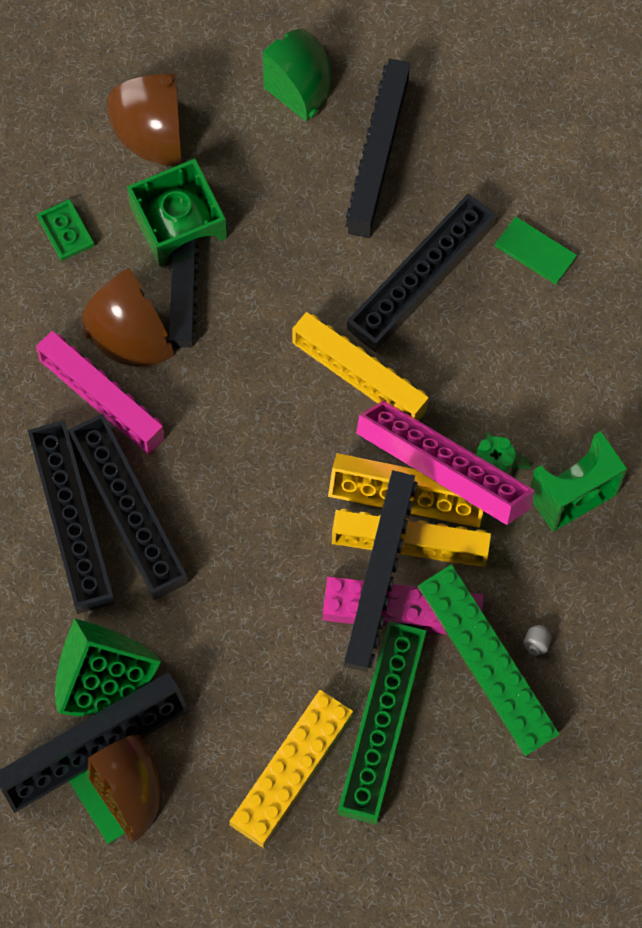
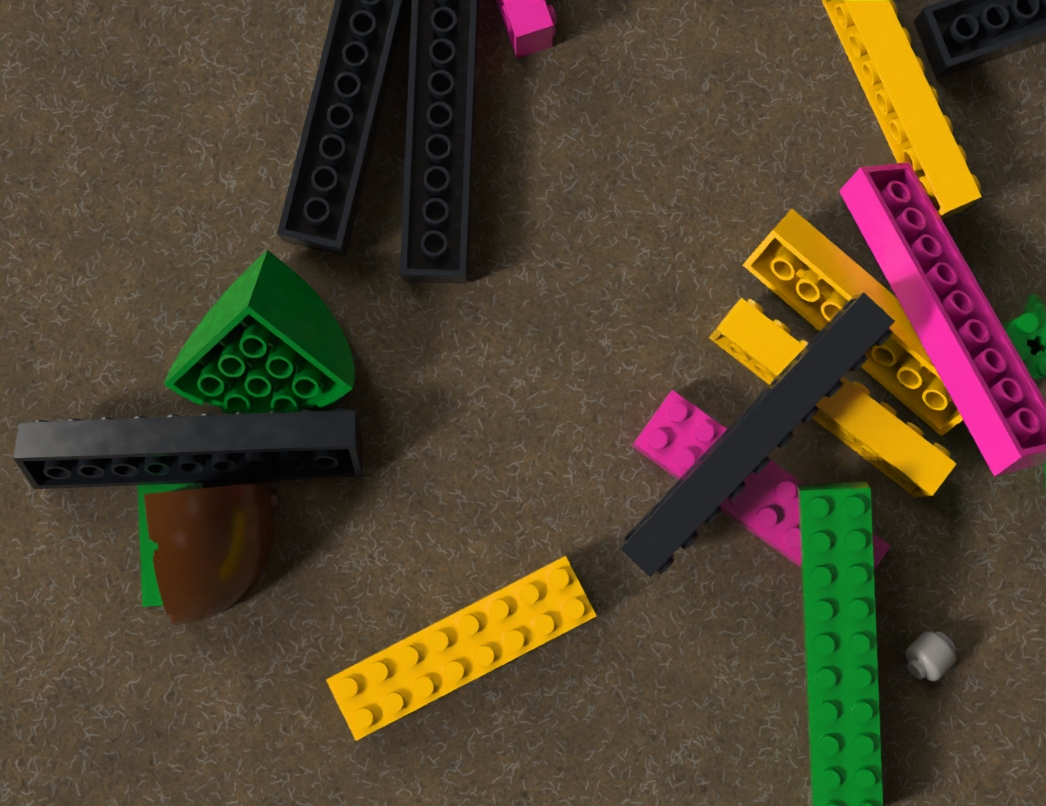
camera: 30 degrees right, 15 degrees up
(381, 723) = (630, 655): green brick -> none

